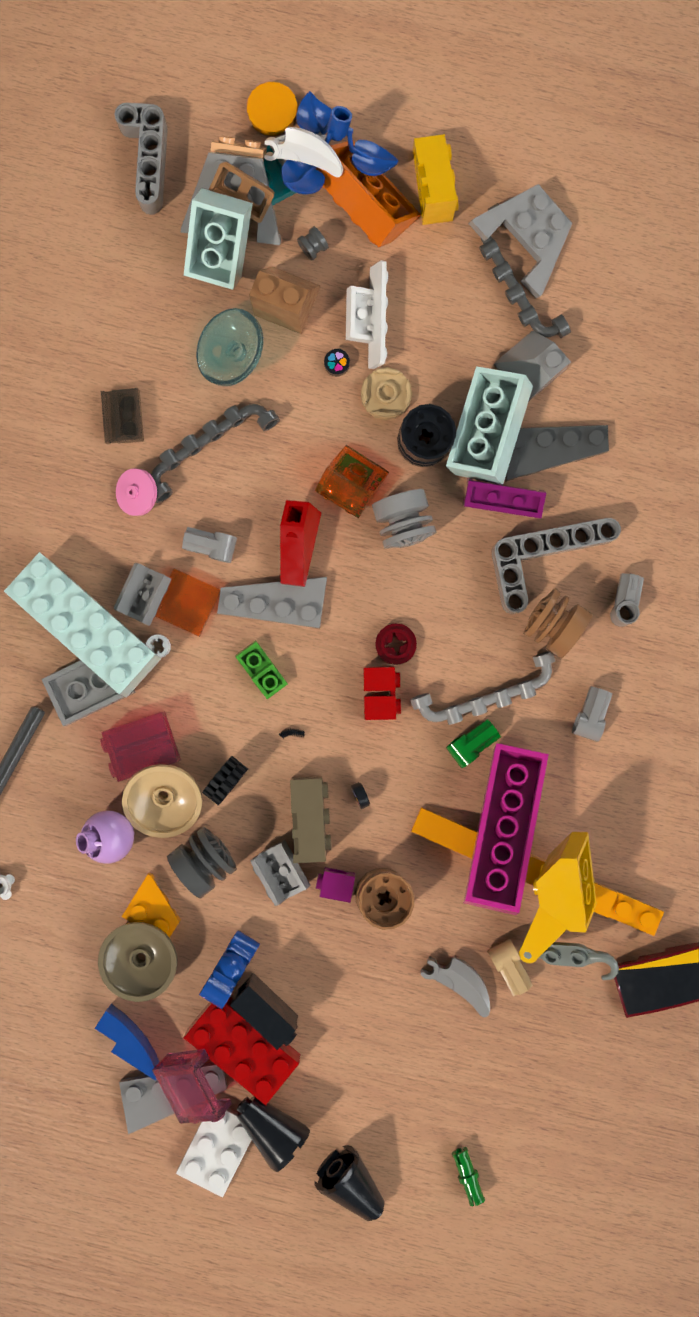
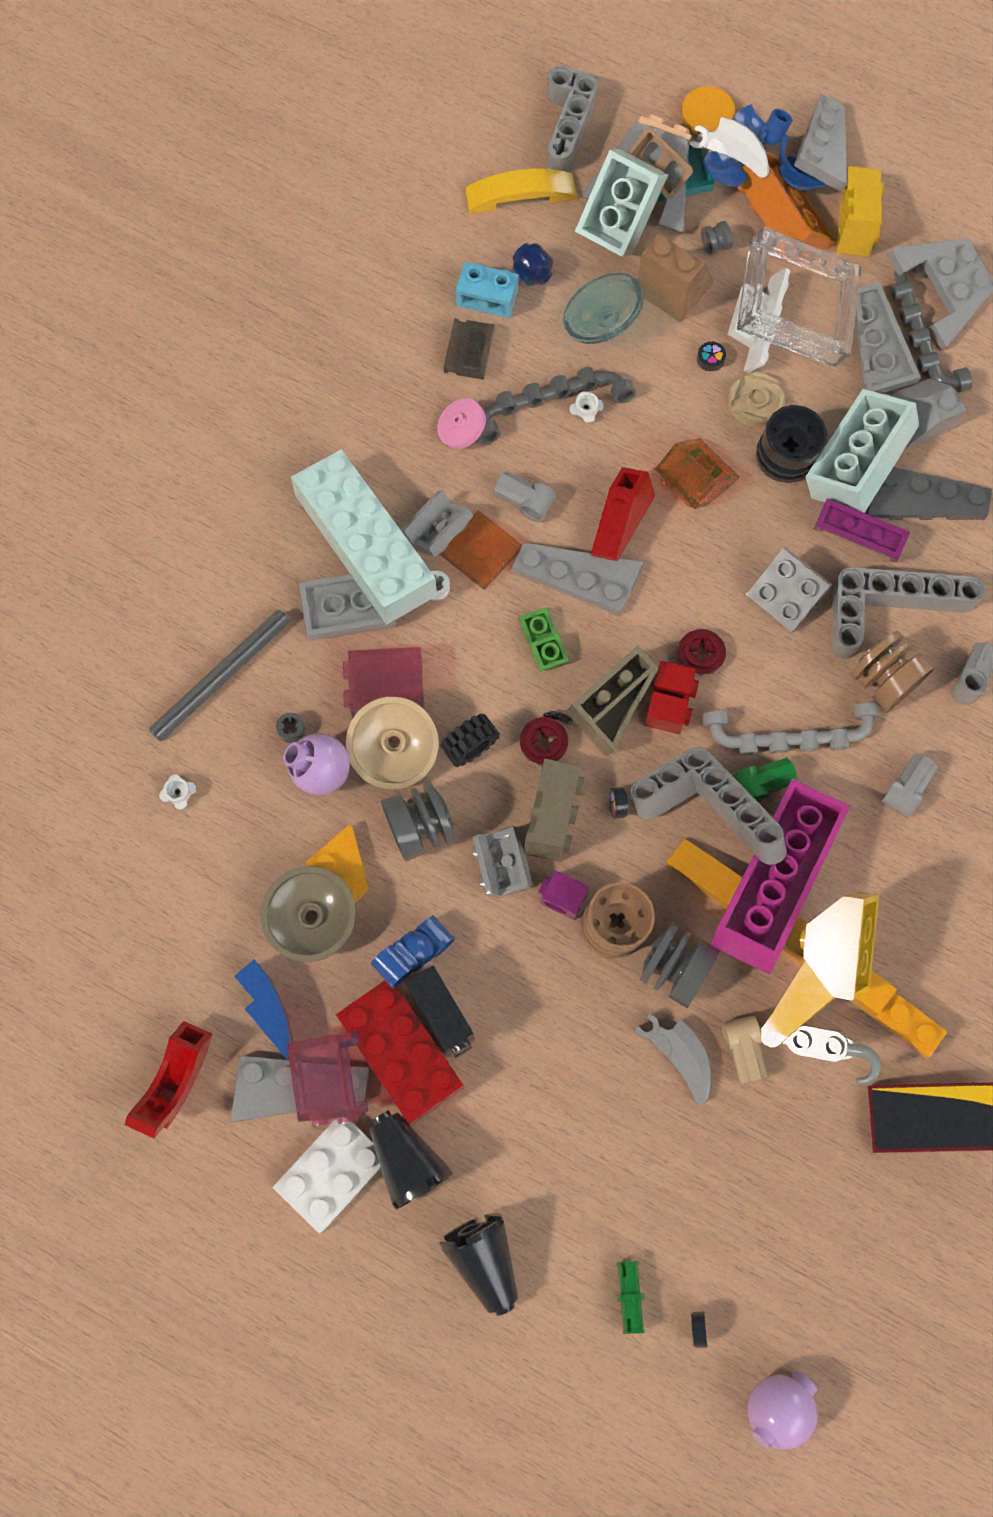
camera: 15 degrees right, 15 degrees down
(72, 1125) = (173, 1081): none -> red arch
(83, 803) = (290, 717): none -> dark grey bush
(121, 353) = (487, 289): none -> medium azure brick
(122, 238) = (520, 185): none -> yellow slope
(155, 317) = (533, 264): none -> clear blue head
(236, 437) = (586, 399): none -> white plate
(284, 770) = (550, 729): none -> dark red gear
(333, 710) = (612, 700): none -> dark tan wedge
(387, 122) = (824, 144): none -> light grey wing
(400, 331) = (783, 331): none -> clear window
(403, 517) = (745, 519): light grey wheel -> none
(442, 775) = (702, 774): none -> light grey beam
(442, 920) = (679, 964): none -> dark grey wheel
(455, 571) = (789, 589): none -> light grey plate
(484, 313) = (881, 345): none -> light grey wing
(525, 1186) = (699, 1329): none -> black tile
(600, 1228) = (783, 1411): none -> lavender brick

